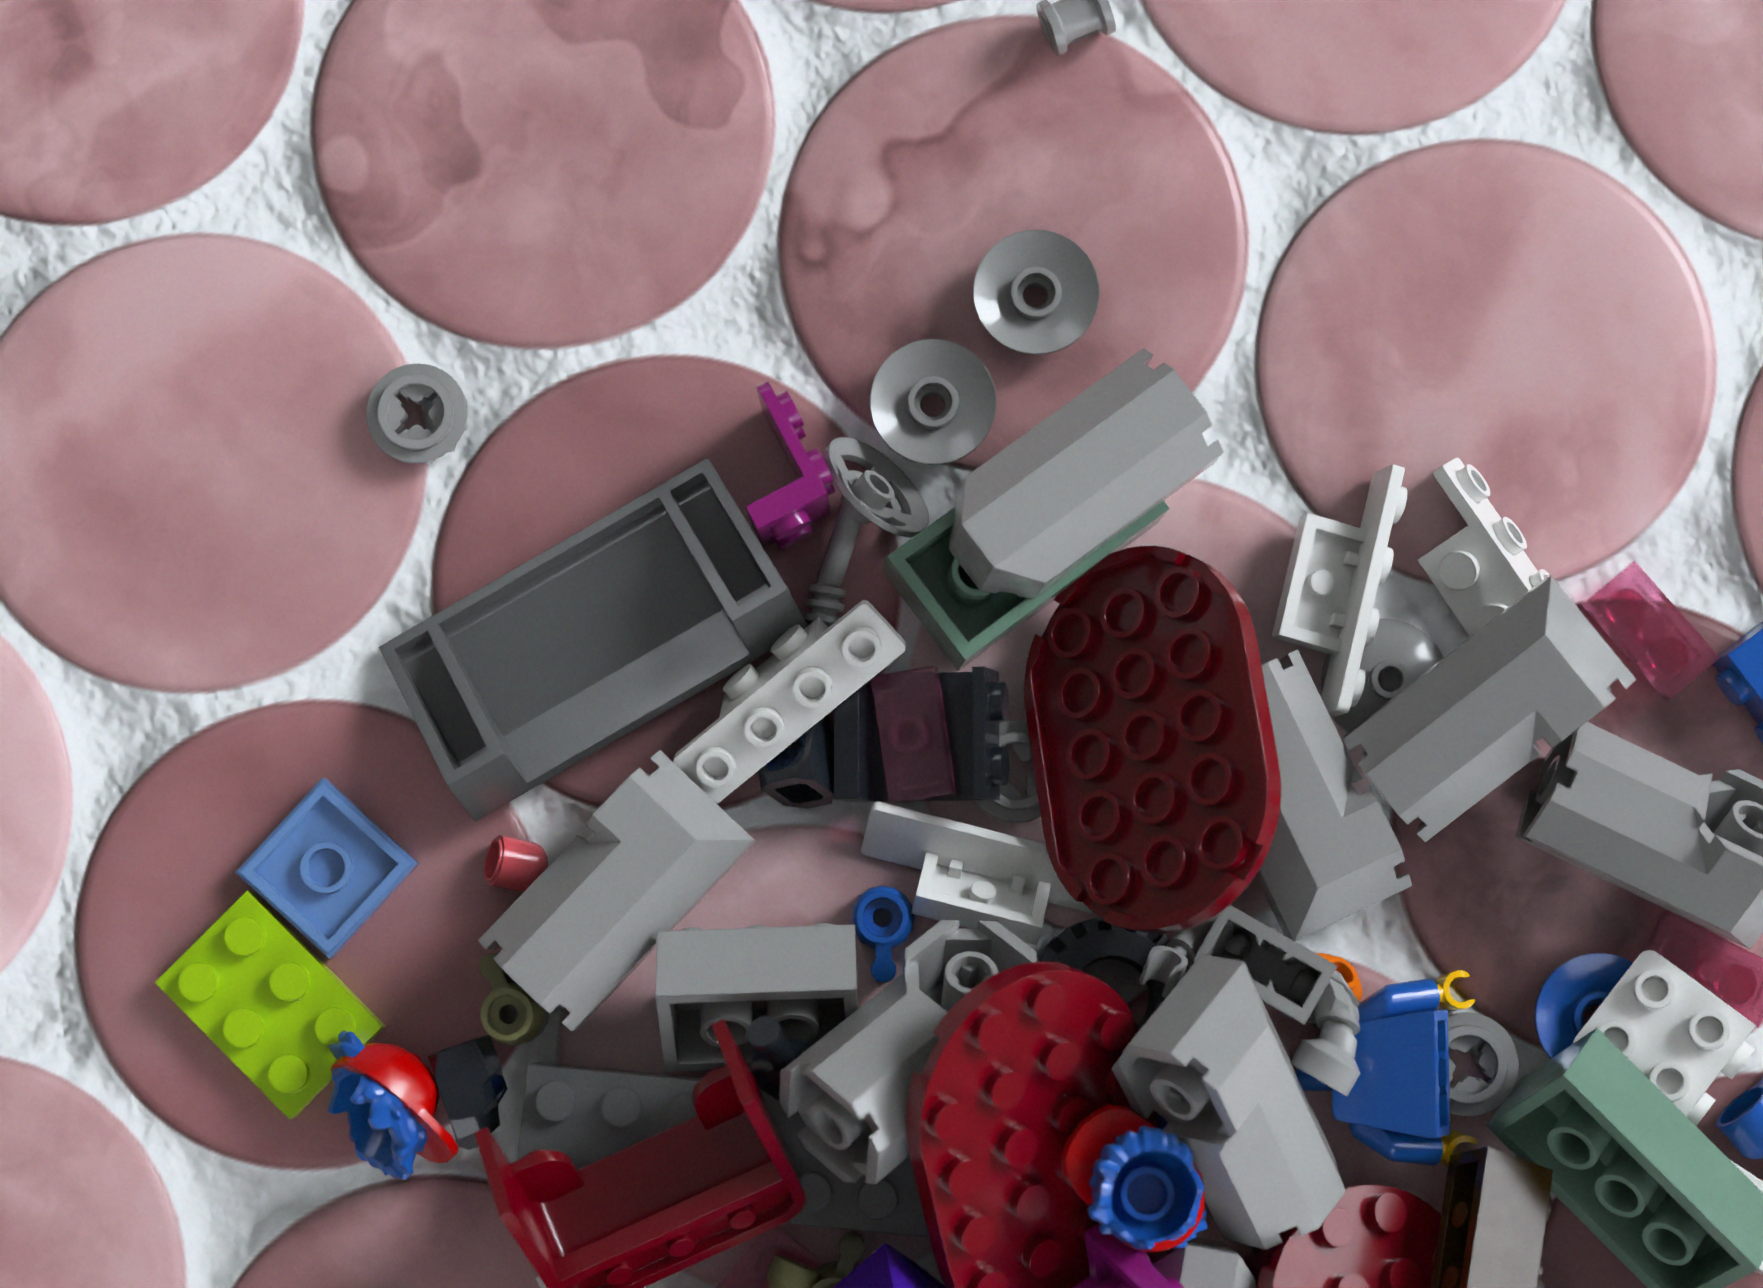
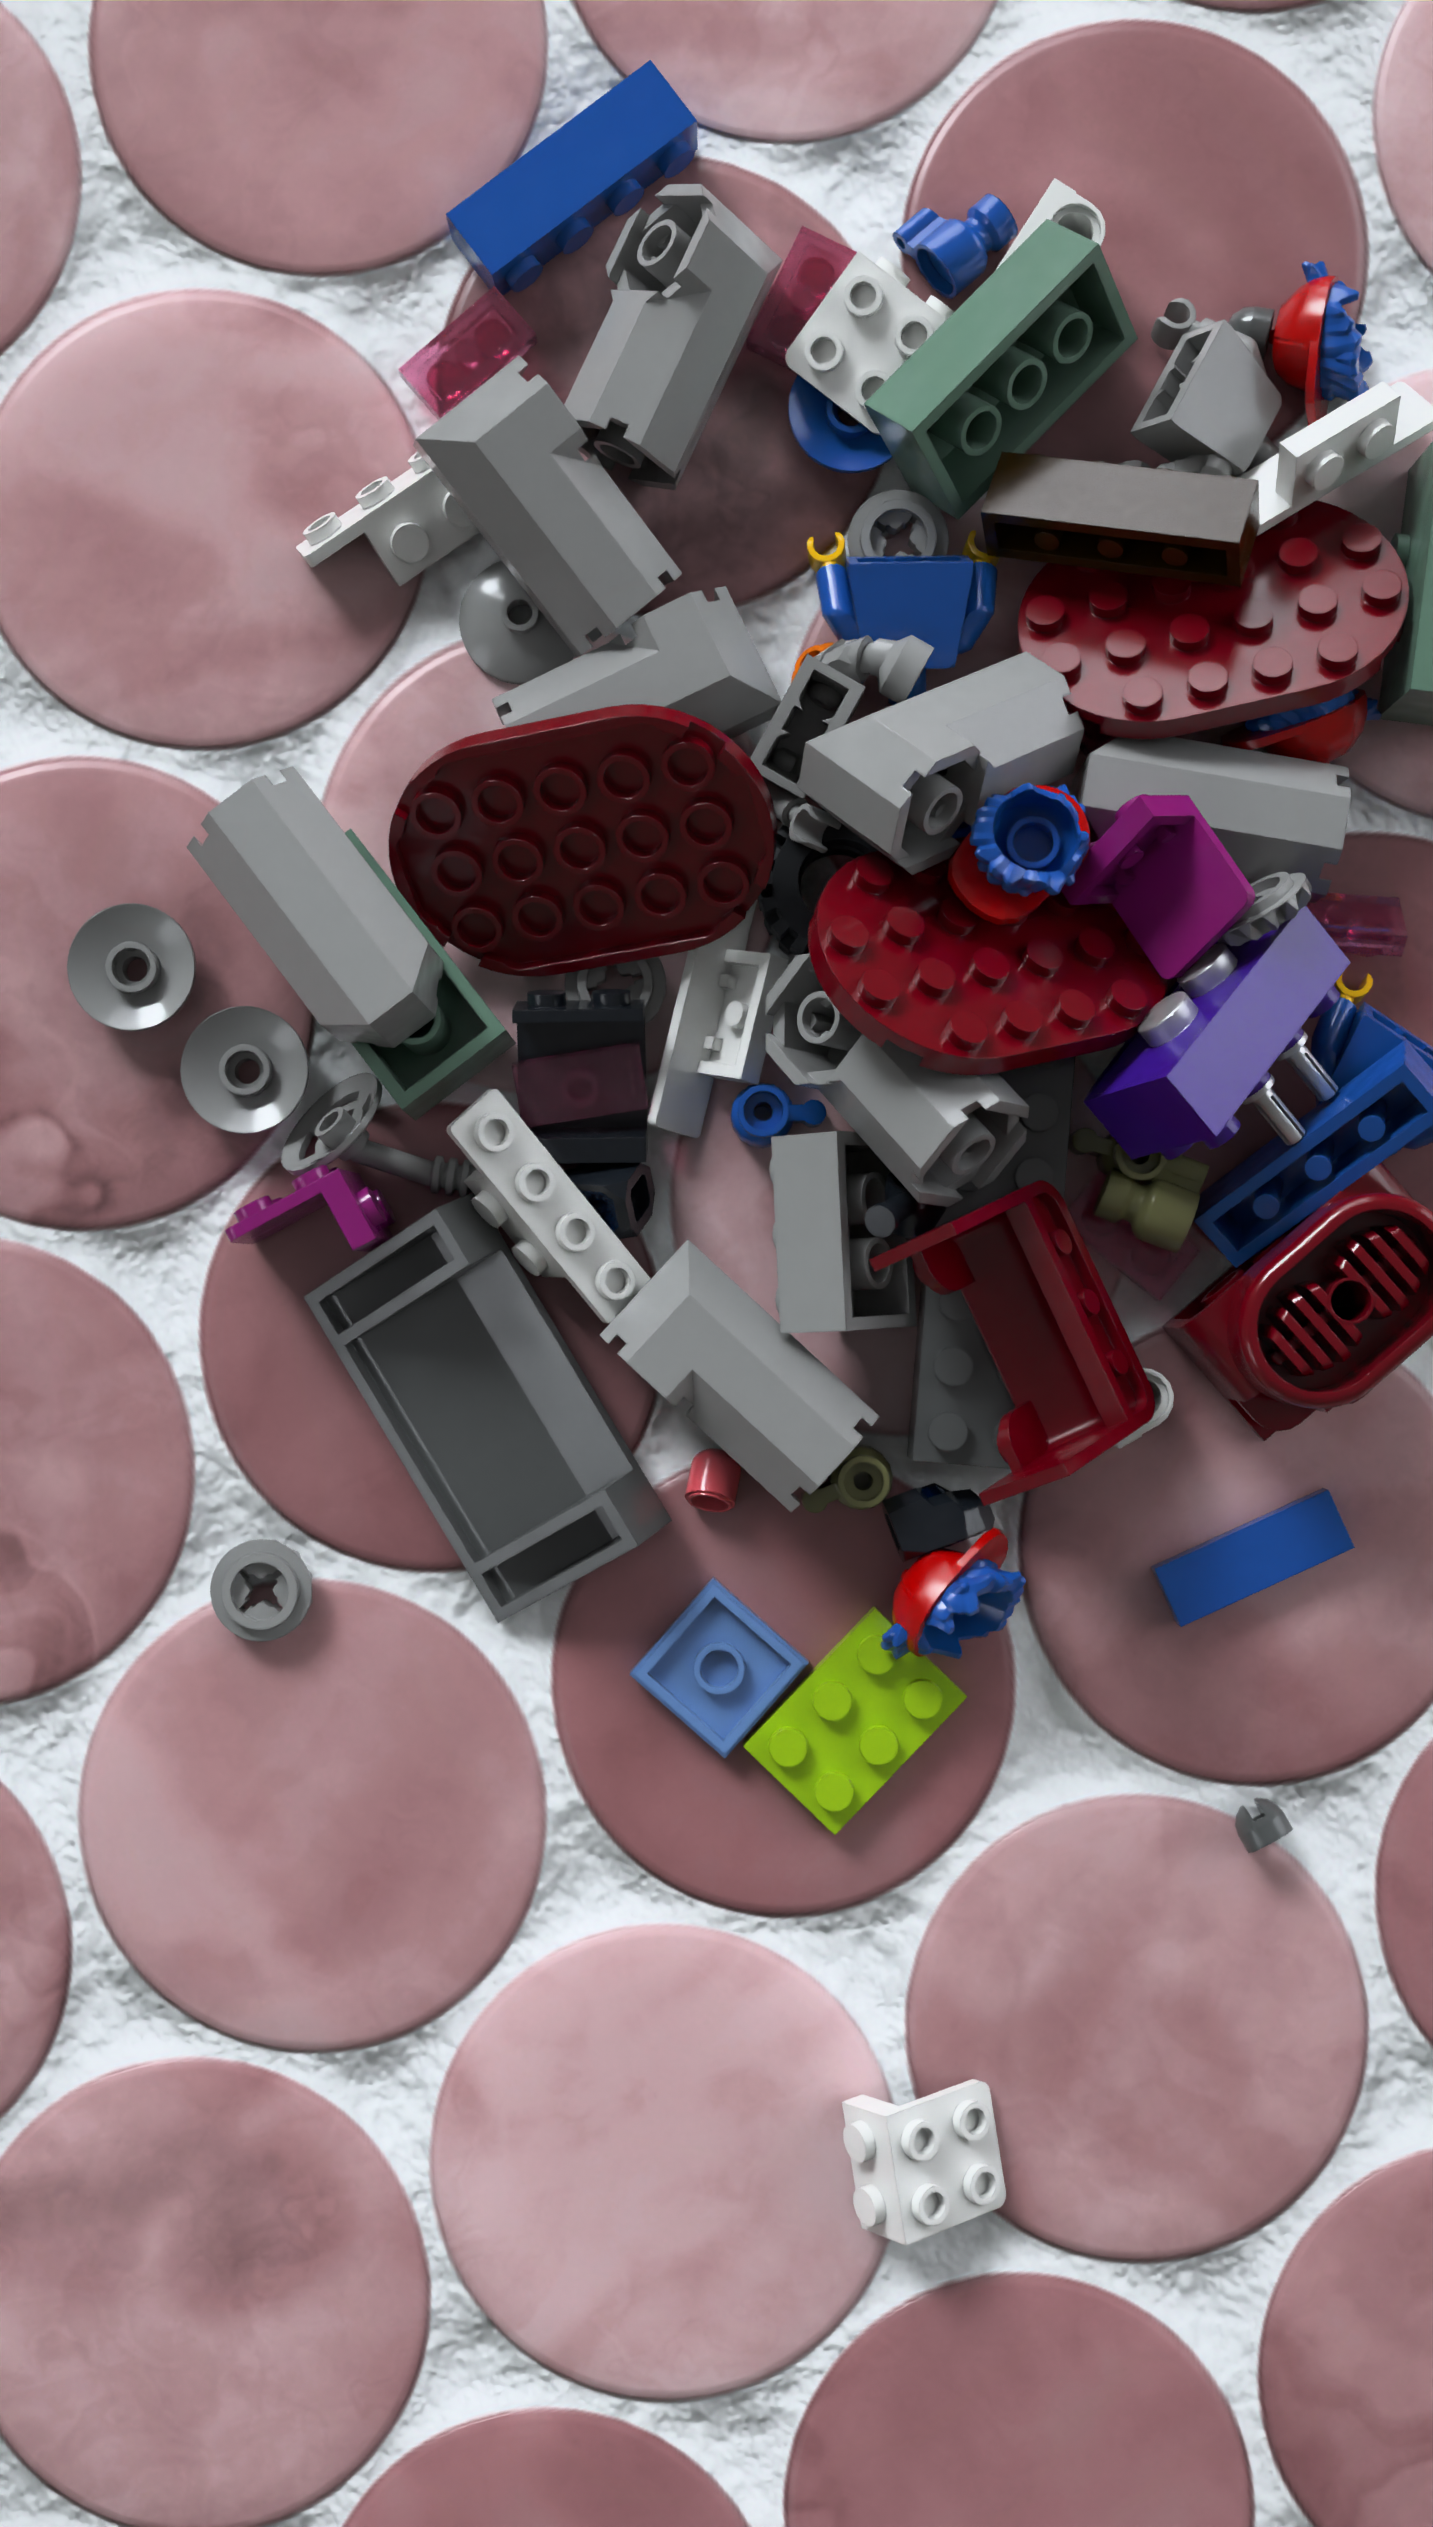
camera: 90 degrees left, 5 degrees up
(1335, 584) = (426, 665): white bracket -> none

